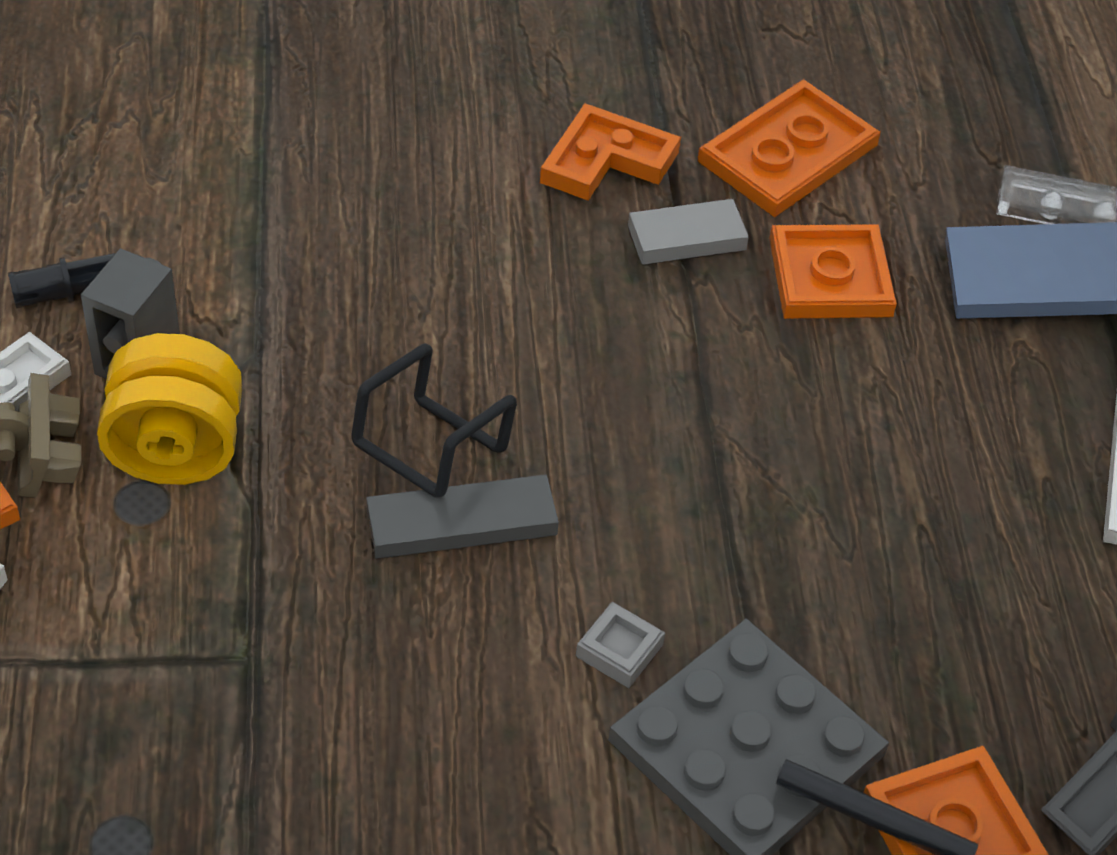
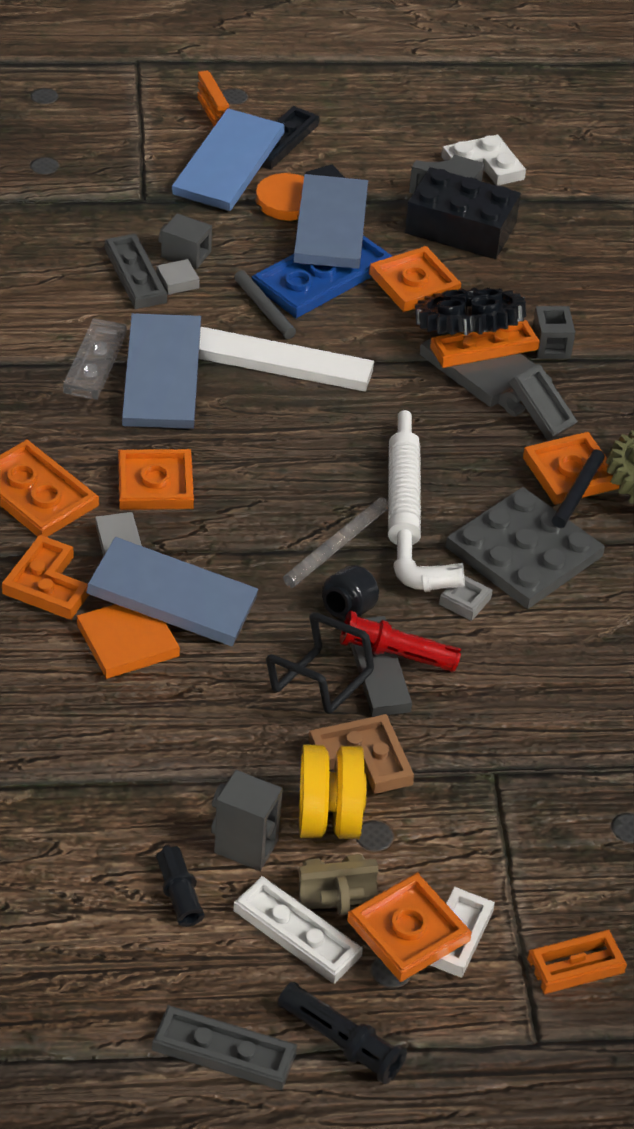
camera: 90 degrees left, 5 degrees down
(289, 494) = (383, 755): none -> medium nougat plate
(487, 498) = (410, 646): none -> red pin
(511, 238) = (126, 639): none -> orange tile
(583, 274) = (172, 591): none -> sand blue tile
(597, 475) = (349, 590): none -> black head
(729, 480) = (335, 542): none -> clear bar
(812, 562) = (405, 512): none -> white piece

